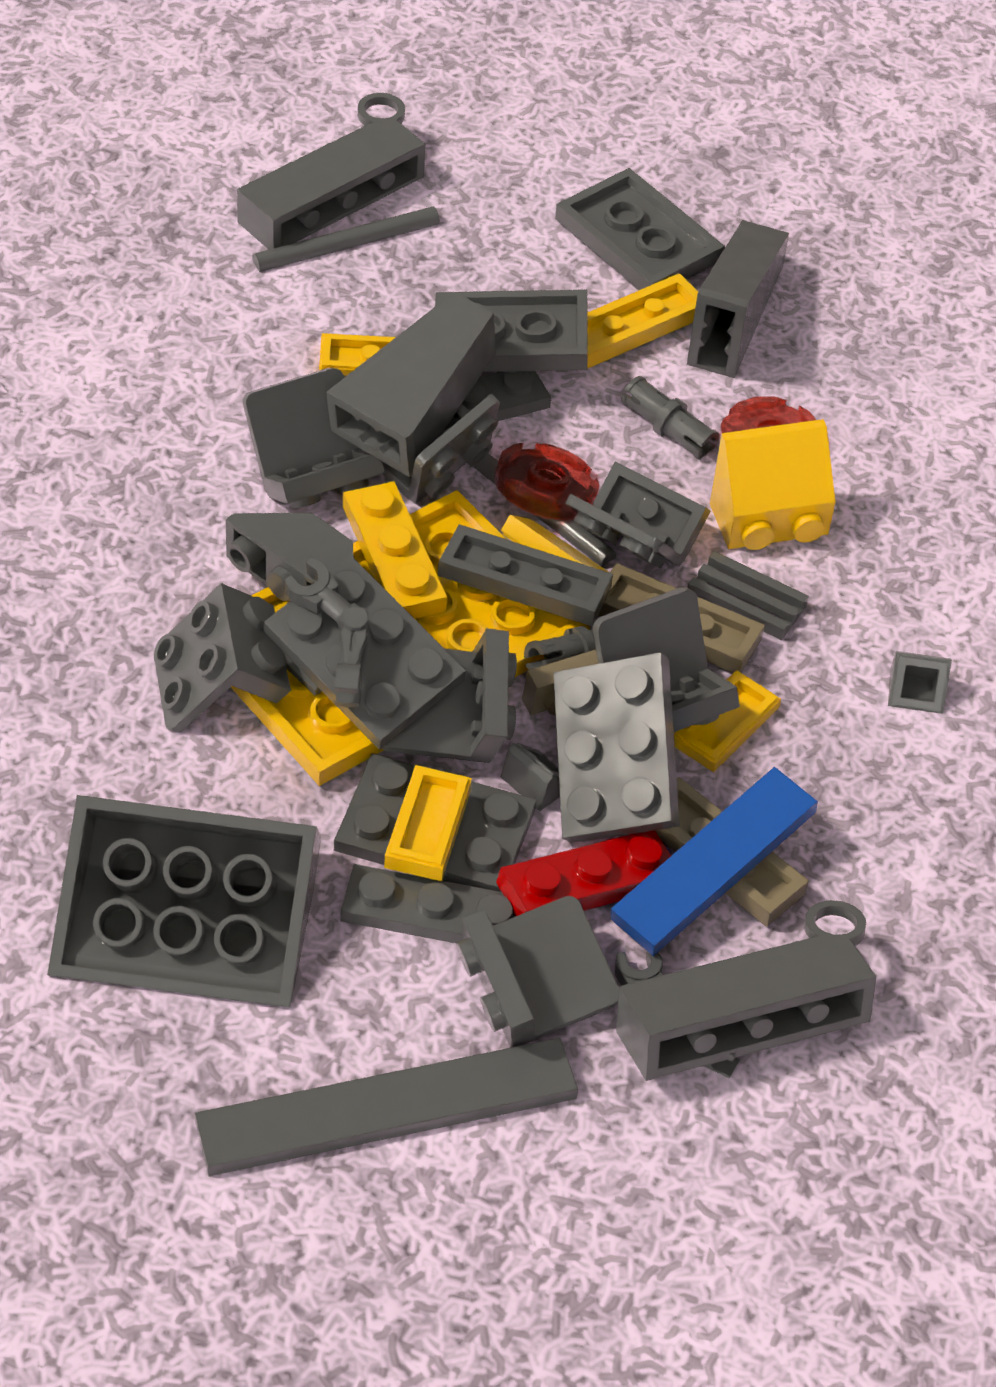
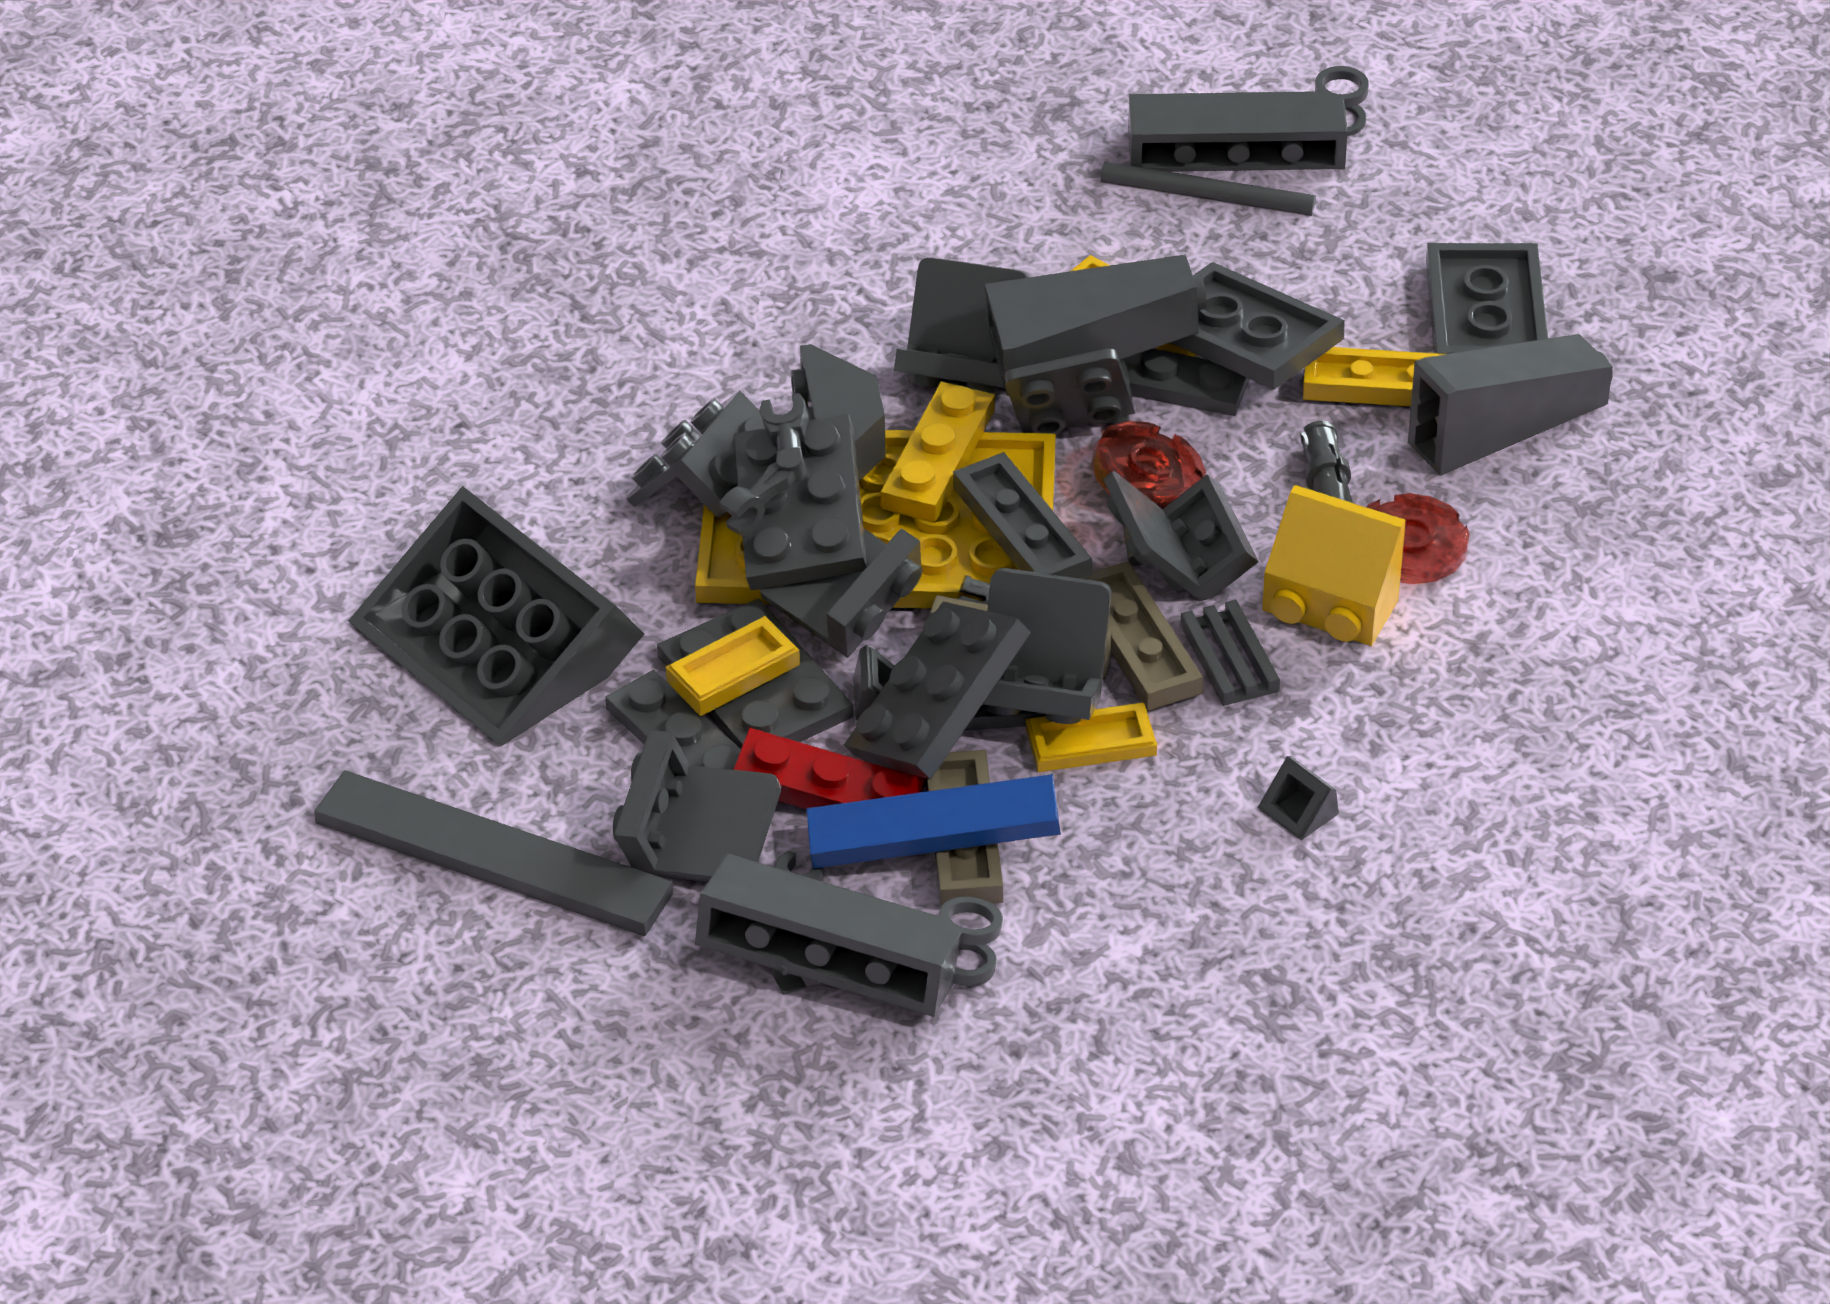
camera: 45 degrees right, 5 degrees down
(533, 535) = (1088, 519): yellow tile -> none

